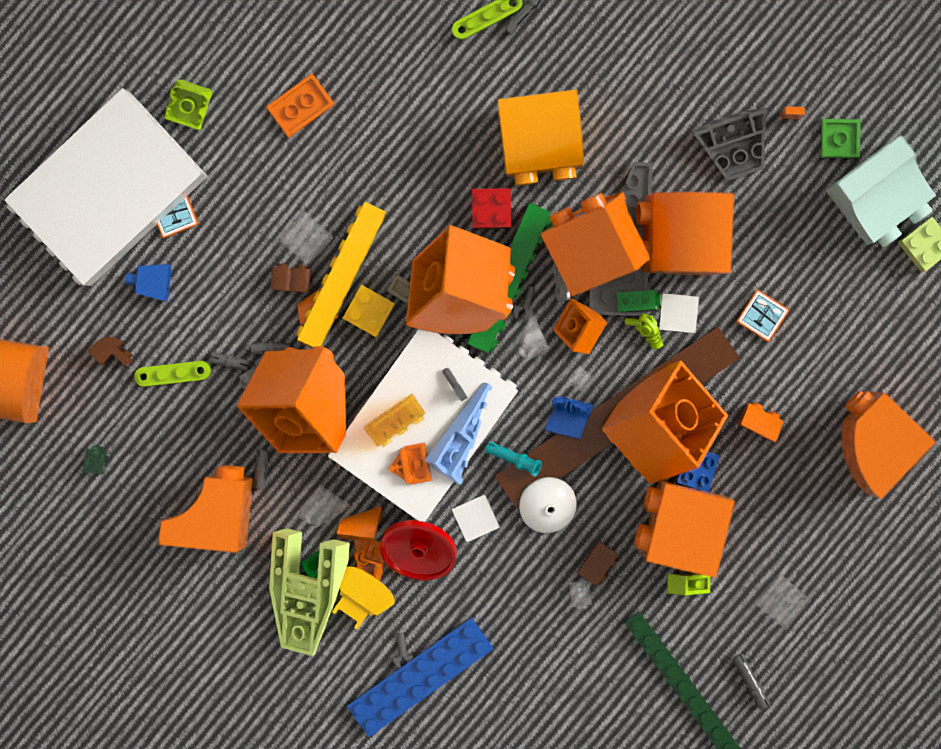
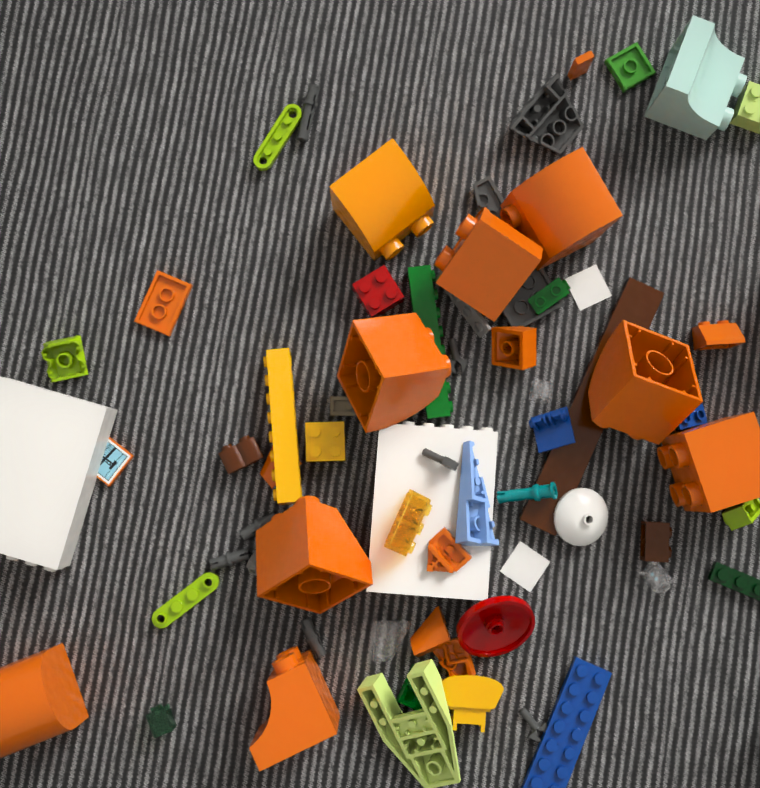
camera: 30 degrees left, 5 degrees down
(108, 347) = (114, 612): reddish brown brick -> none
(151, 281) = (120, 529): blue torso -> none
(306, 238) = (233, 411): clear brick -> none
(532, 340) = (482, 380): clear slope -> none
(648, 328) = (571, 313): lime piece -> none
(762, 315) = (659, 247): tile -> none

